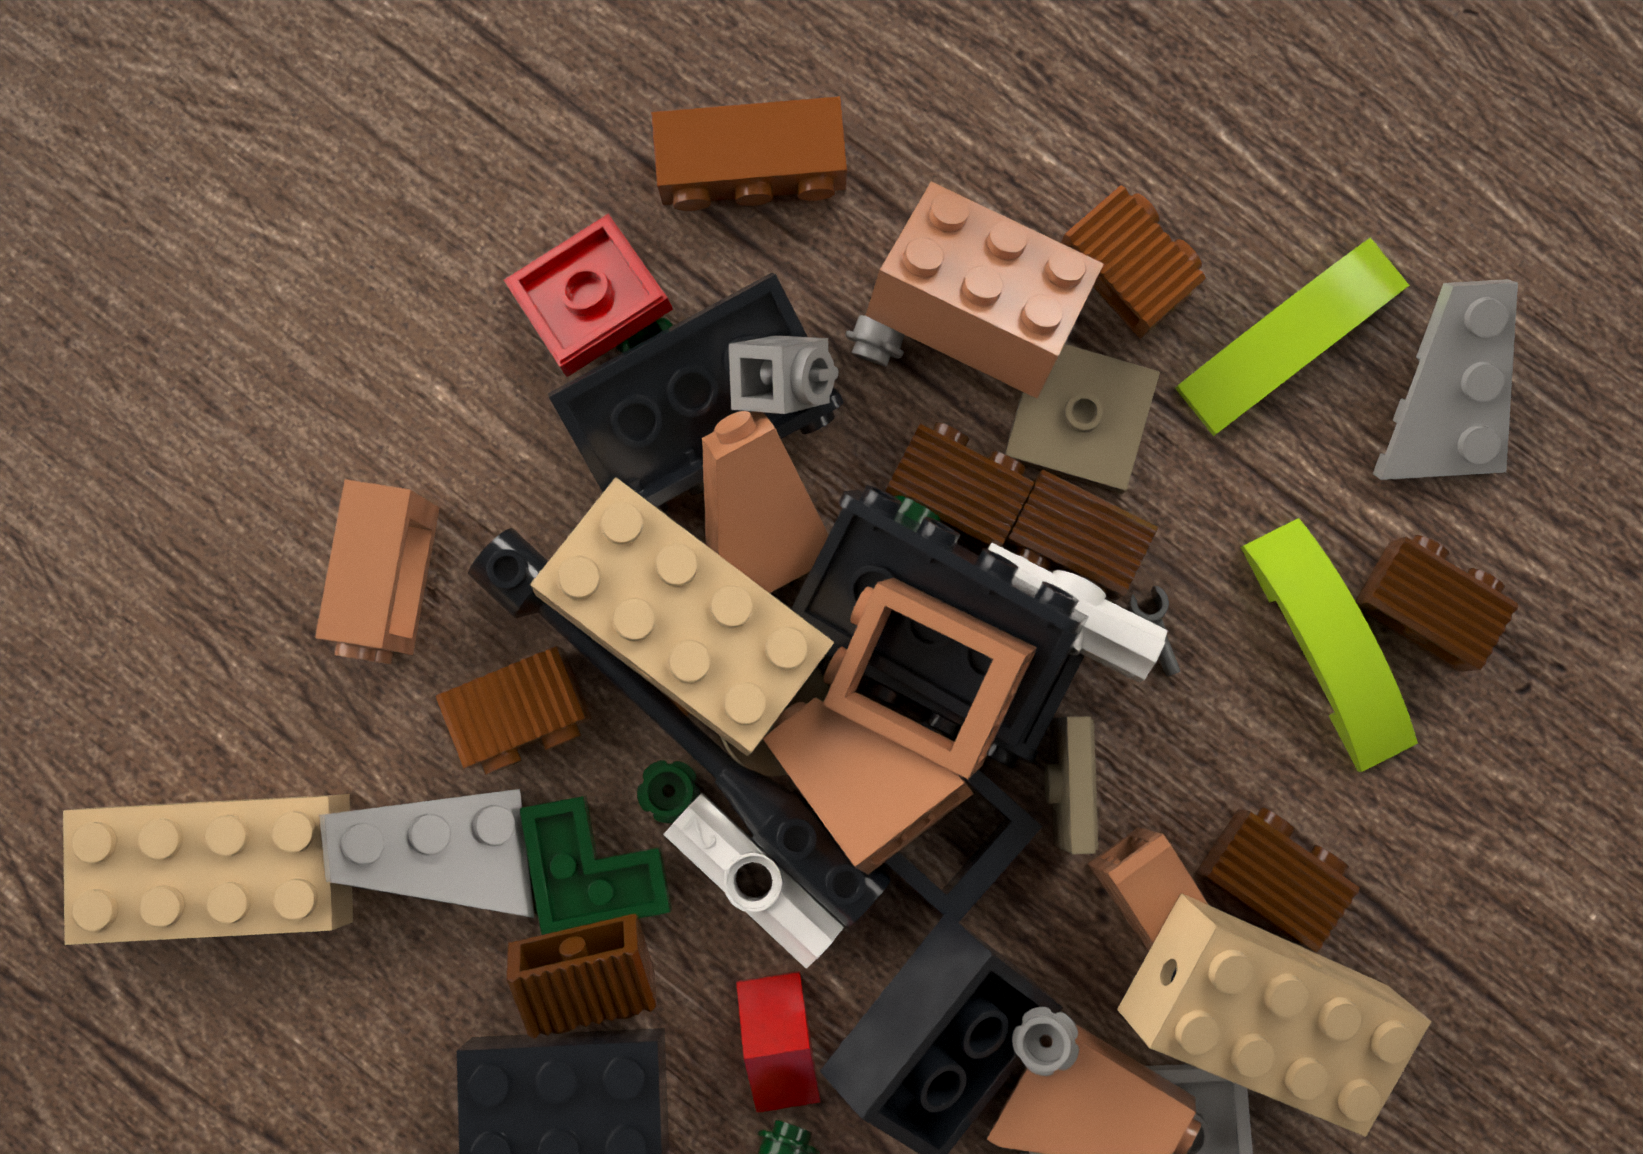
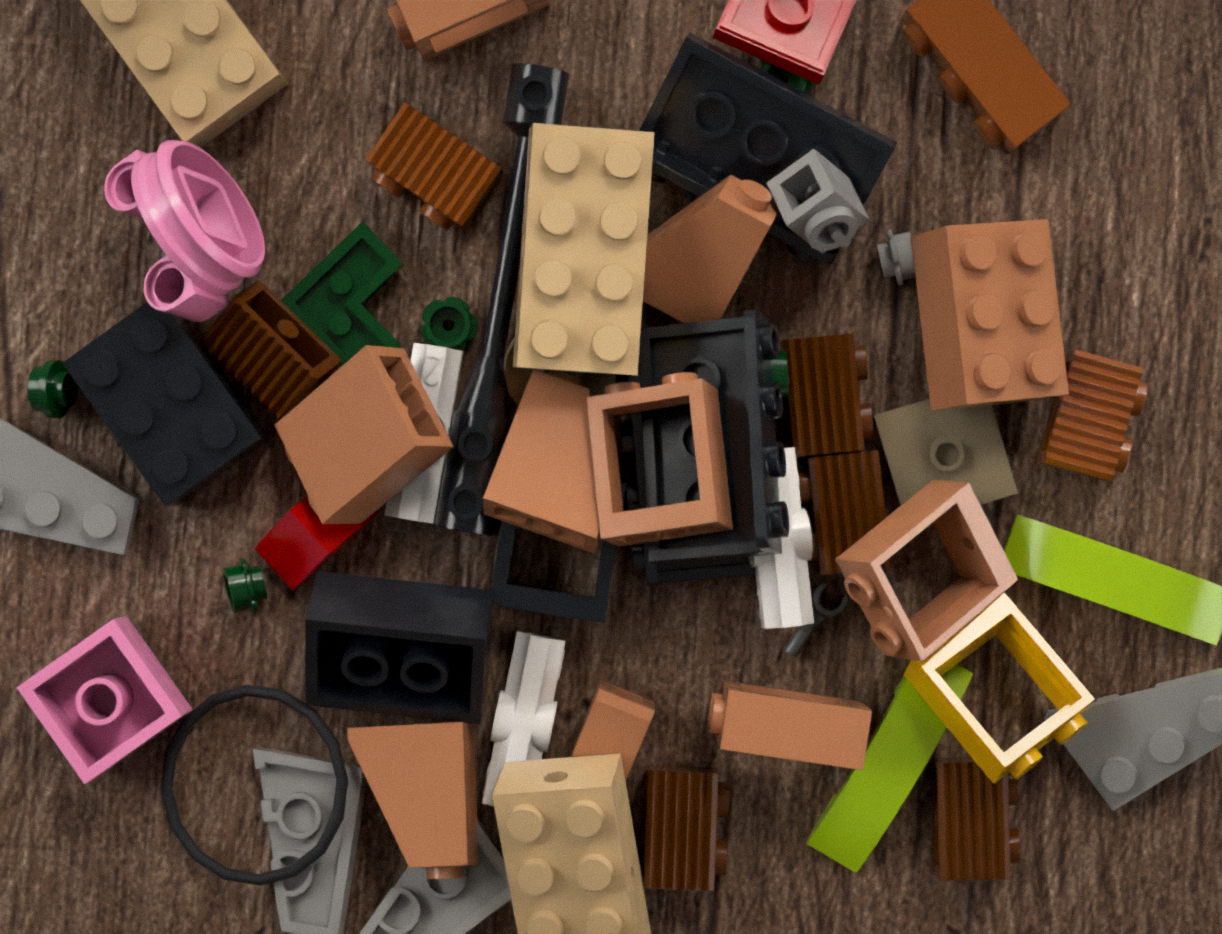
camera: 60 degrees right, 5 degrees up
(435, 850) = (293, 181): light grey wing -> none
(451, 992) = (196, 220): none -> bright pink piece
(719, 941) = (363, 435): none -> nougat brick
(1043, 1059) = (432, 721): light grey plate -> none
(1072, 784) = (649, 623): dark tan plate -> none
(1072, 953) = (526, 706): none -> white piece
(1192, 443) = (972, 548): none -> nougat window
(1250, 713) = (790, 725): none -> nougat window
(1332, 449) = (1039, 661): none -> yellow window

